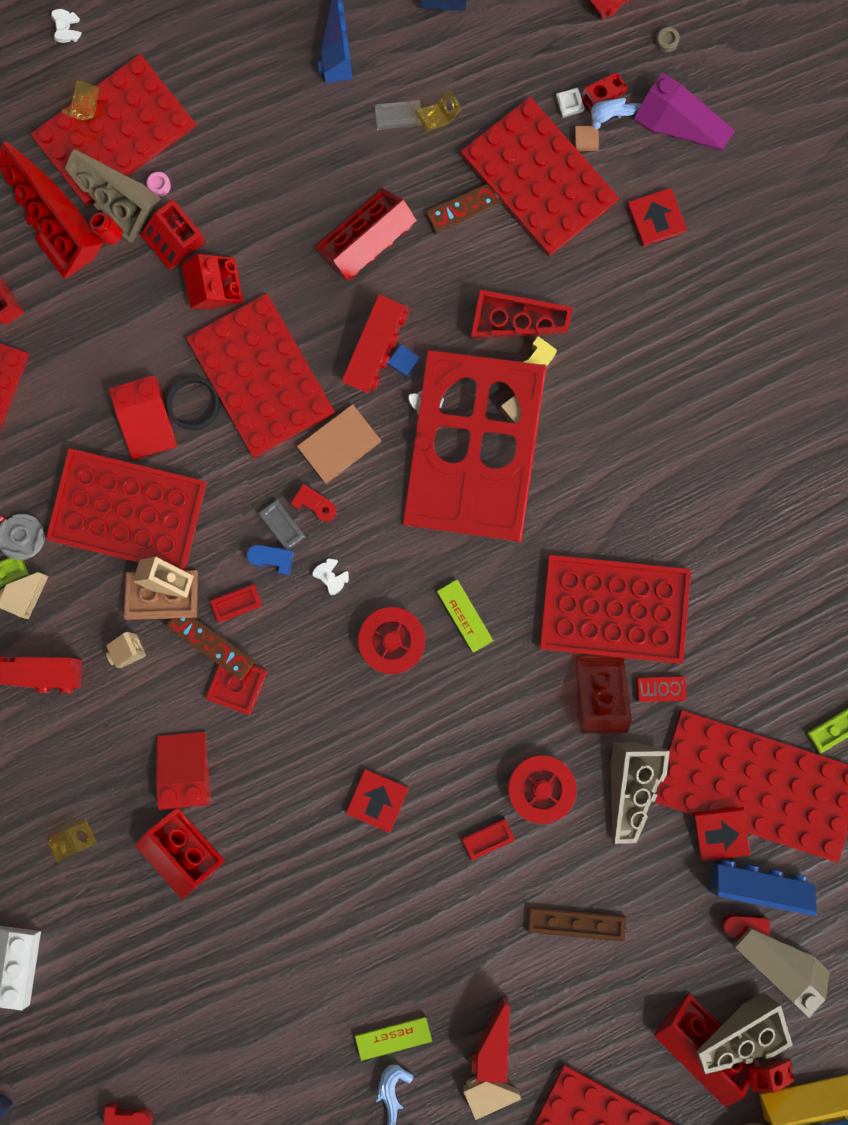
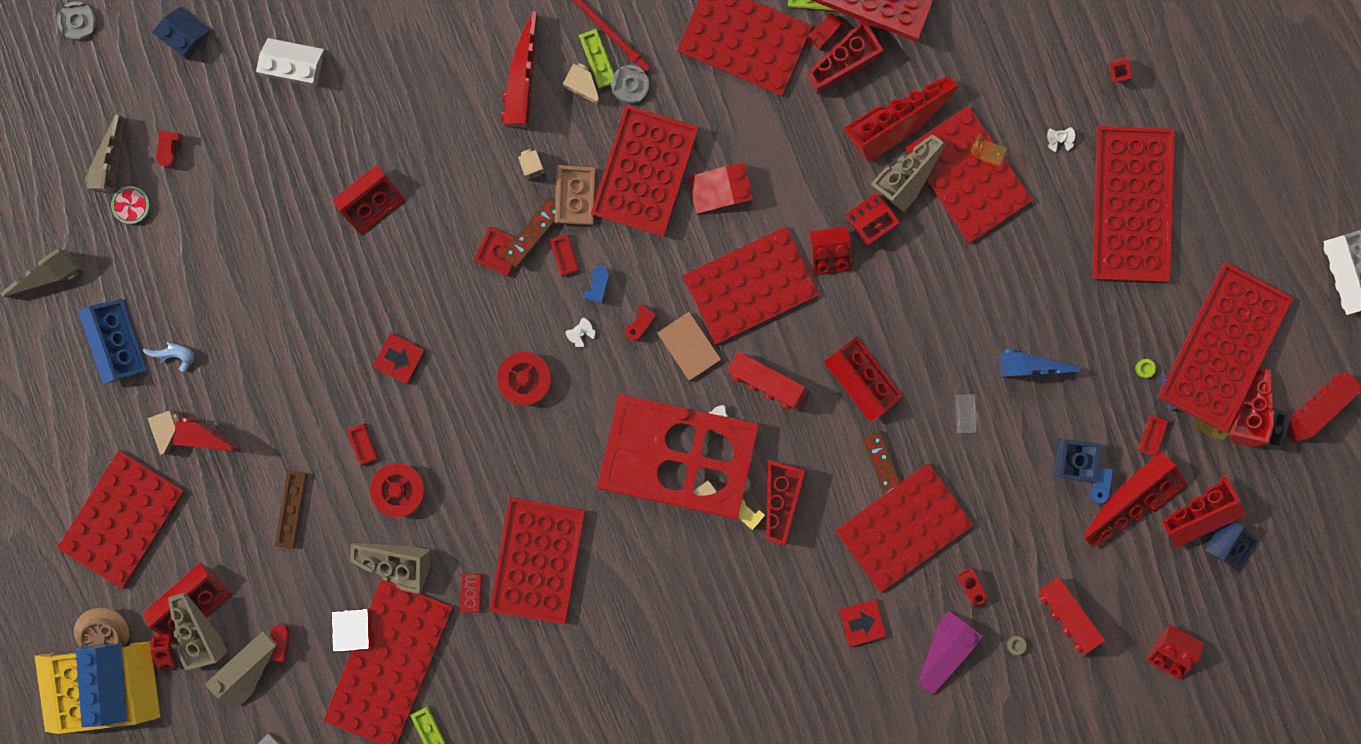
camera: 85 degrees right, 5 degrees up
(67, 843) = (382, 111): clear yellow bracket -> none
(106, 228) = (879, 165): red brick -> none
(159, 183) = (919, 209): bright pink tile -> none
(163, 577) = (586, 198): tan slope -> none
(177, 386) = (735, 210): black tyre -> none
(182, 771) = (432, 205): red slope -> none
(282, 525) = (625, 295): flat silver tile -> none
(393, 1038) = (214, 359): lime tile -> none
(403, 361) = (754, 403): blue tile -> none
(438, 115) = (962, 446): clear yellow bracket -> none
(465, 616) = (540, 438): lime tile -> none
(570, 102) = (966, 558): white tile -> none
(586, 138) = (934, 569): nougat tile -> none
(602, 695) = (469, 544): clear red slope -> none
(606, 109) = (953, 587): light blue piece -> none
(763, 888) = (306, 658): blue slope -> none

